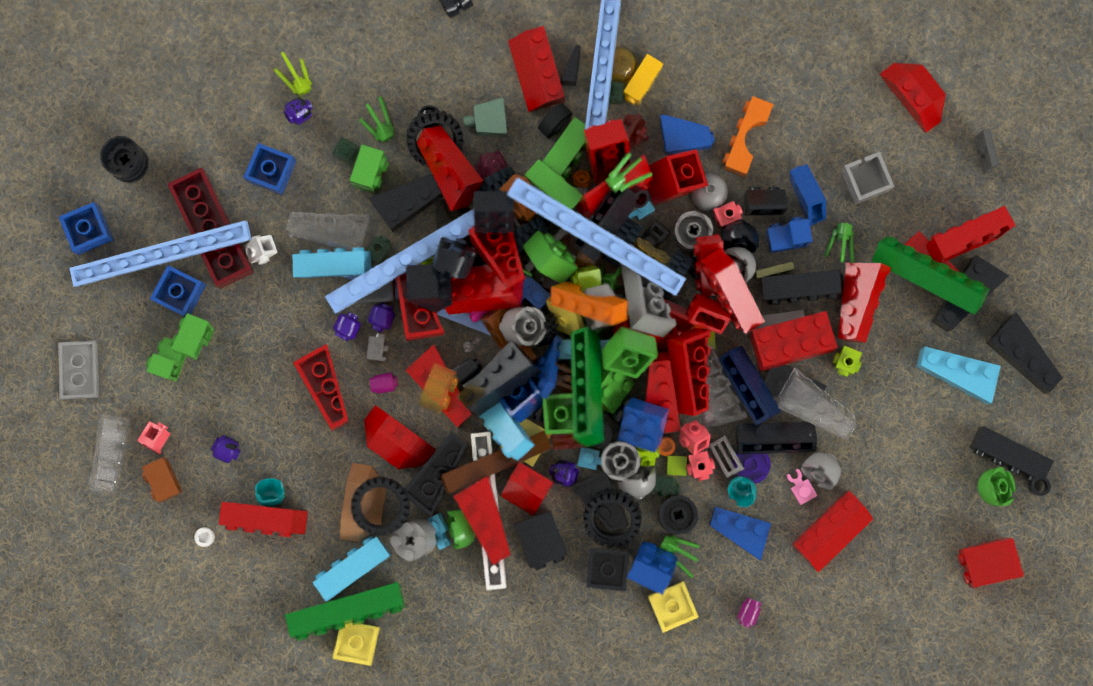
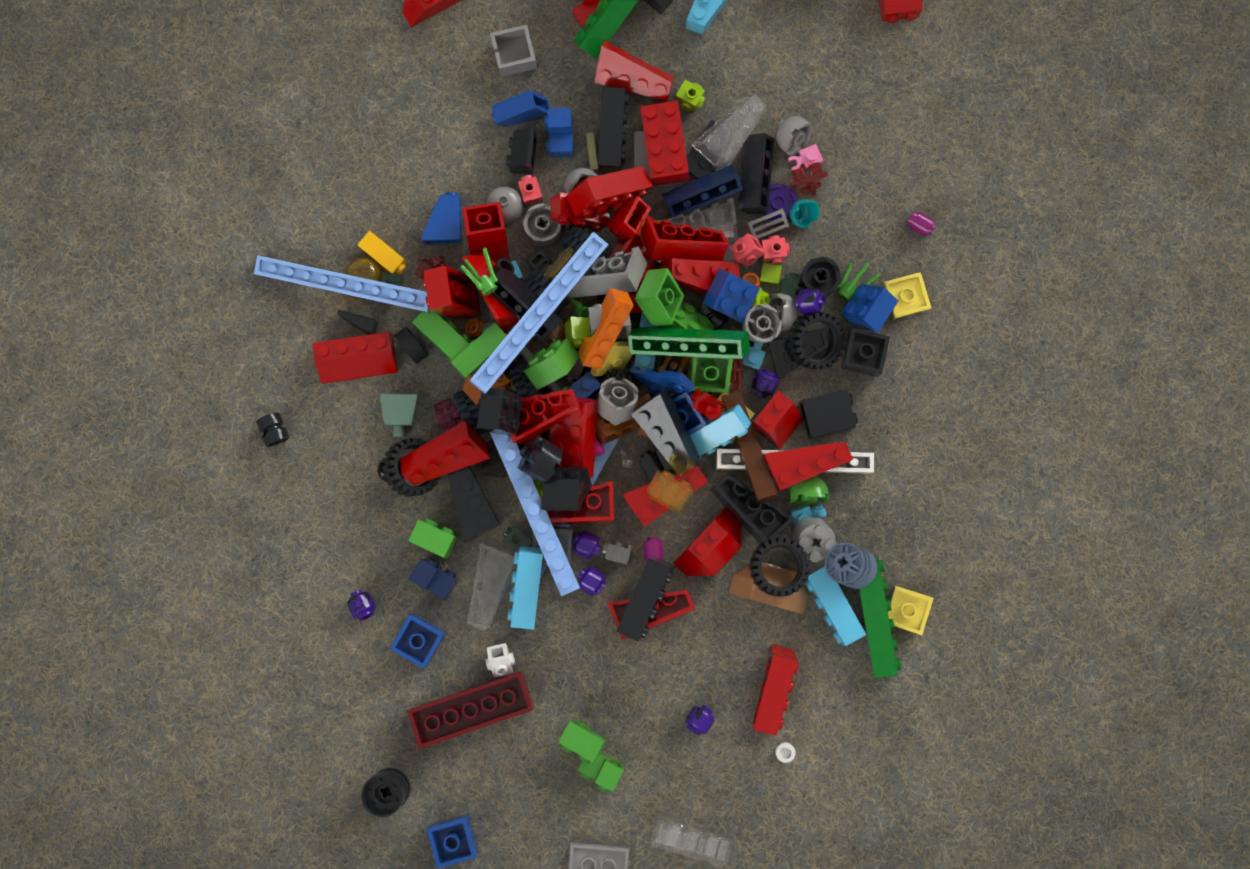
camera: 85 degrees left, 0 degrees up
(154, 436) = (678, 799): coral brick -> none
(160, 253) = (491, 764): light blue plate -> none
(161, 480) = (723, 789): dark orange brick -> none
(178, 291) = (532, 751): blue brick -> none
(269, 492) = (749, 679): teal hair -> none
(301, 86) = (336, 598): lime plant -> none
(331, 175) = (433, 578): none -> dark blue brick
(334, 379) = (645, 598): none -> black wedge
(346, 151) = (409, 559): clear green brick -> none
(384, 131) = (396, 520): bright green plant -> none
(390, 577) = (860, 567): none -> sand blue wheel
(530, 414) = (707, 404): none -> red hips
(650, 505) = (809, 300): none -> dark purple head
(739, 158) = (475, 171): orange arch -> none
(740, 235) = (553, 178): black cylinder -> none
(742, 530) = (840, 220): blue wing -> none
(776, 484) = (800, 179): none -> clear red hips
(832, 531) = (850, 134): red slope -> none
(843, 233) = (564, 82): bright green plant -> none

